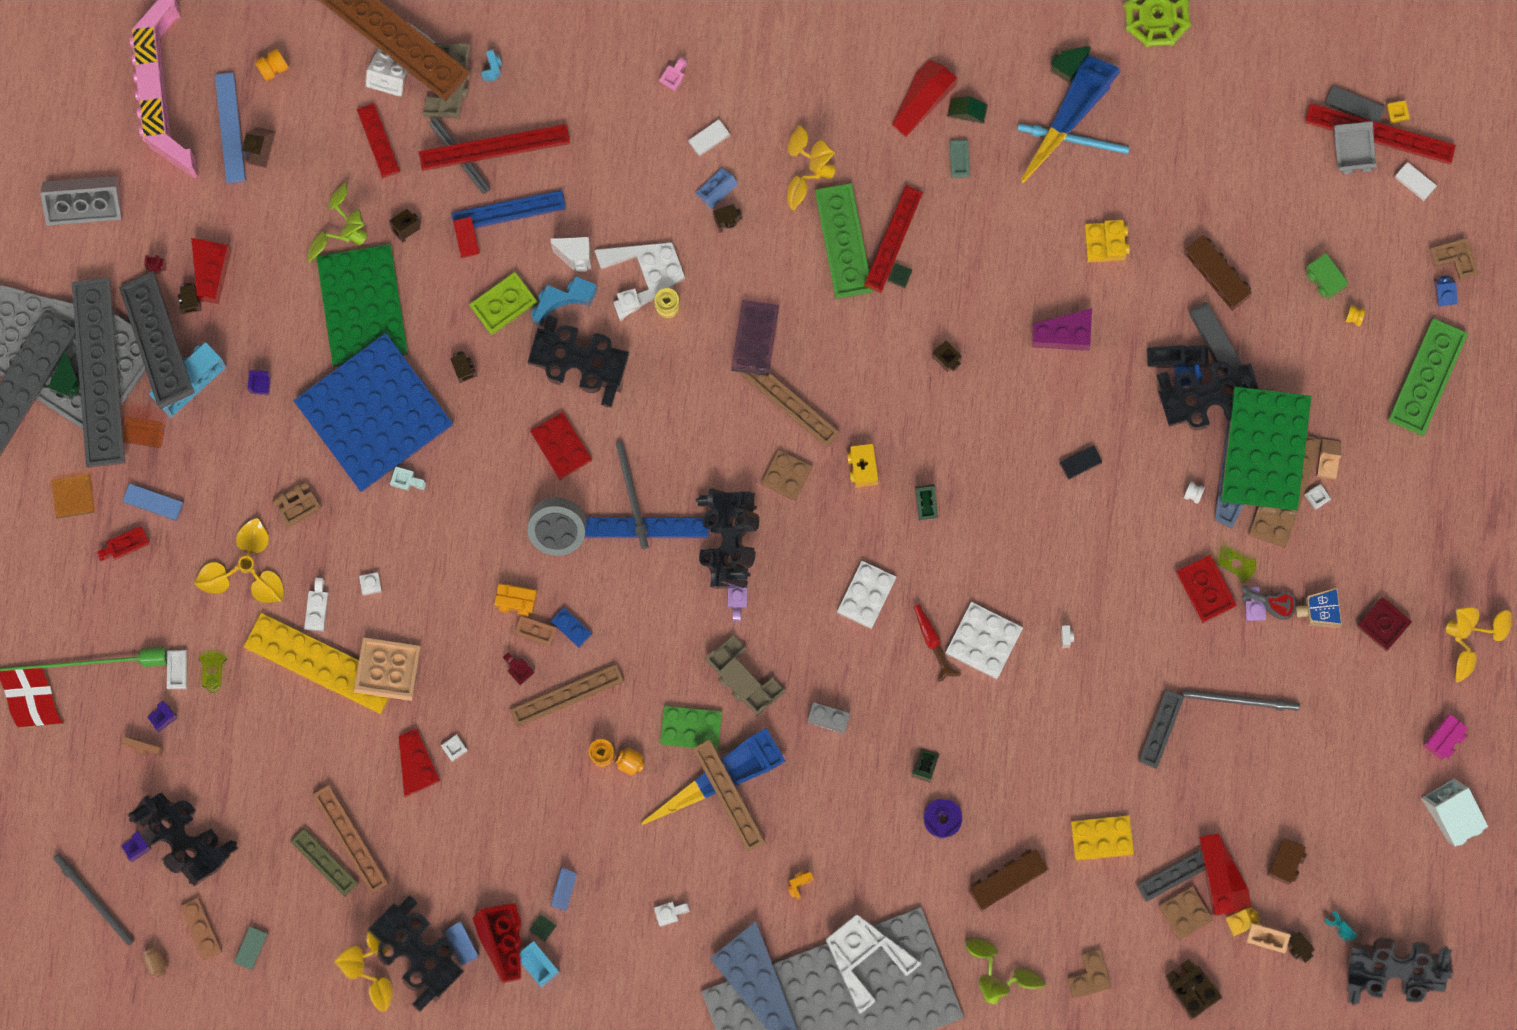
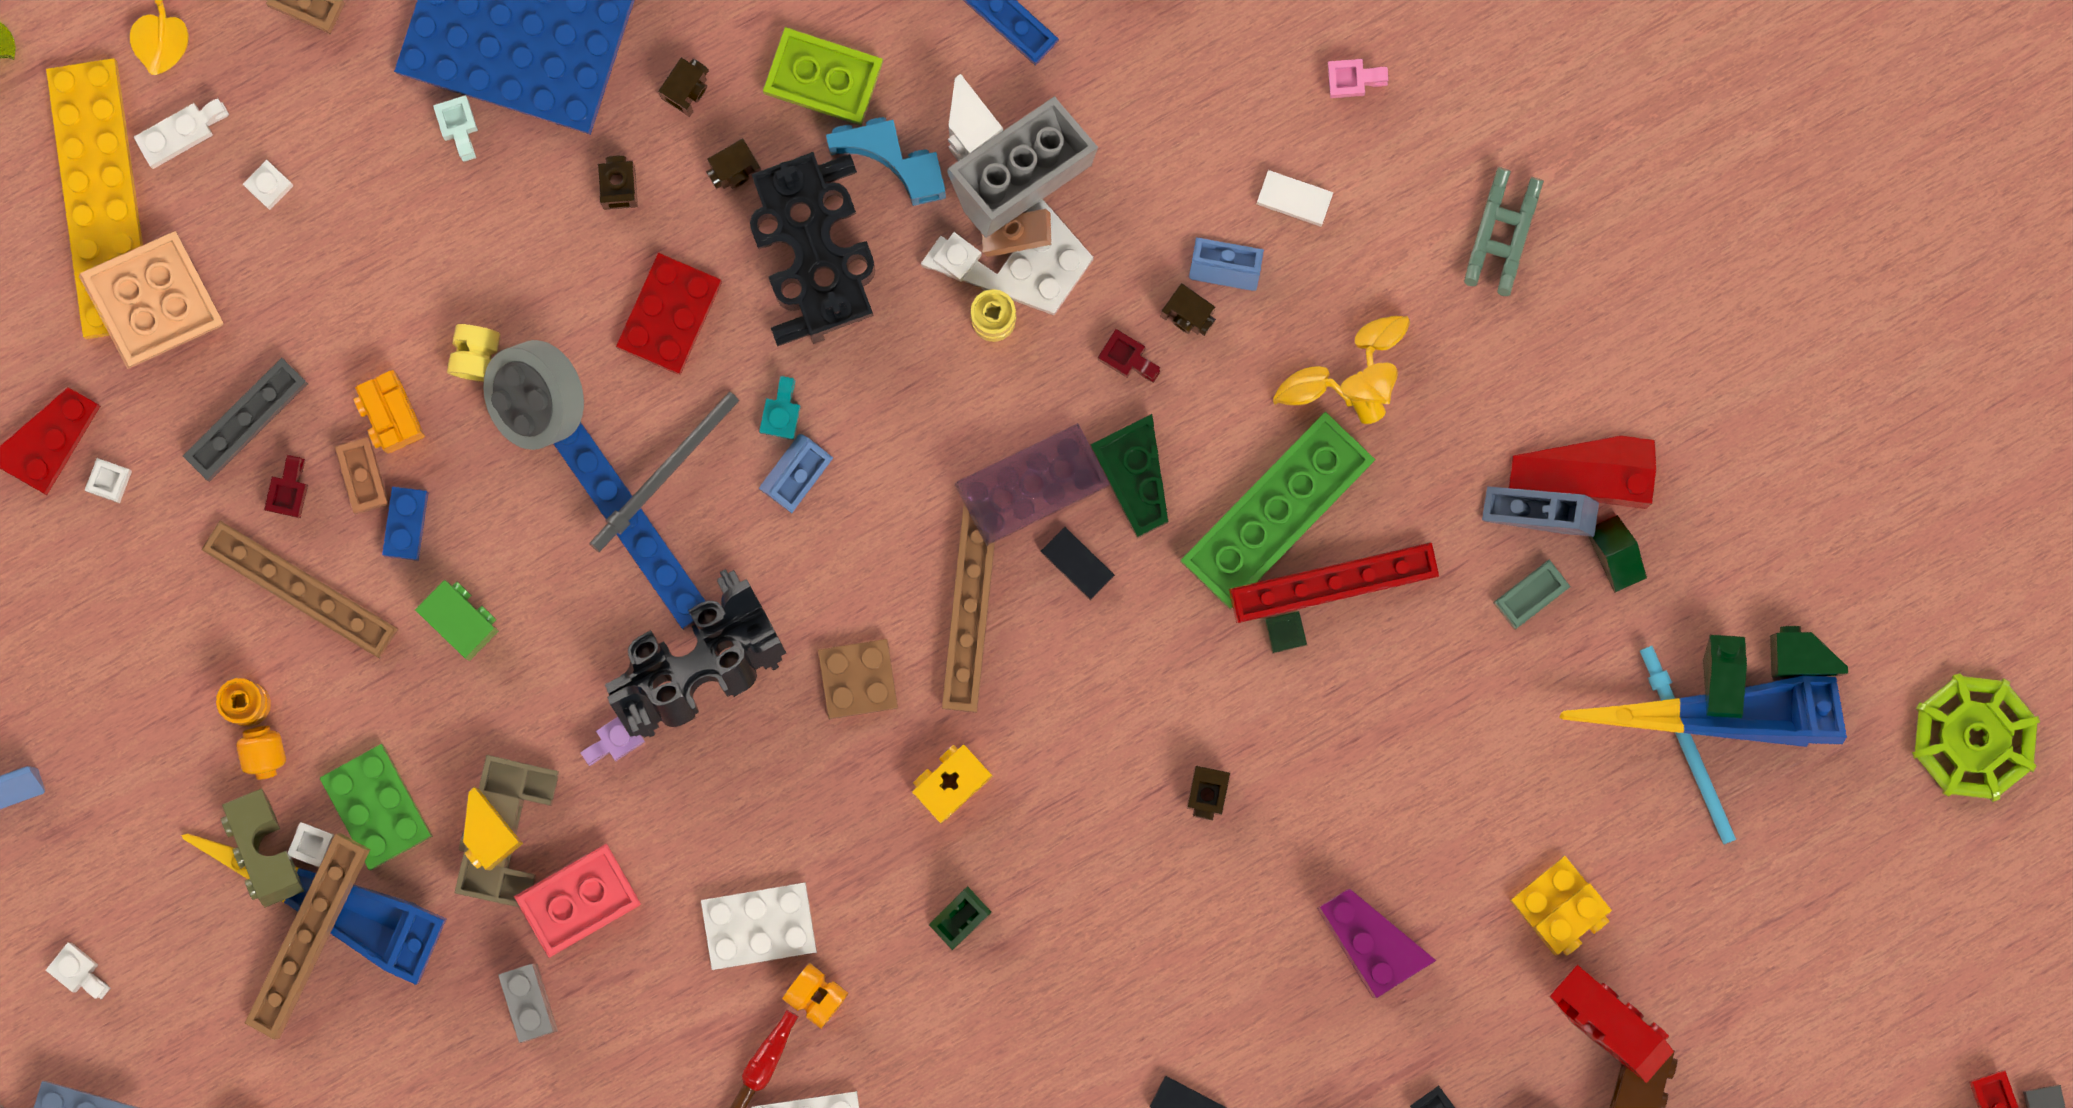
camera: 50 degrees right, 5 degrees up
(472, 666) = (245, 419): none -> dark grey plate
(488, 433) = (620, 195): none -> dark brown brick
(515, 370) = (732, 165): none -> dark brown brick
(516, 542) = (473, 351): none -> light yellow wheel
(610, 242) = (1021, 166): none -> light grey slope
(633, 631) = (457, 619): none -> bright green brick
(637, 267) = (1022, 233): none -> nougat plate
(643, 427) = (780, 415): none -> teal plate
(673, 439) = (795, 473): none -> medium blue slope
(687, 768) = (310, 844): none -> white plate
(690, 793) = (249, 821): none -> olive arch
(726, 259) = (1125, 355): none -> dark red plate
(741, 679) = (487, 833): none -> yellow slope
(781, 291) = (1134, 474): none -> dark green wing
(790, 48) = (1520, 220): none -> sand green piece
(798, 666) = (577, 900): none -> coral tile
(804, 344) = (1077, 563): none -> black tile
(909, 588) = (804, 989): none -> light orange wheel
(925, 128) = (1541, 510): none -> sand blue slope
(1054, 100) = (1725, 676): none -> dark green slope
(1173, 252) = (1612, 1024): none -> red wedge

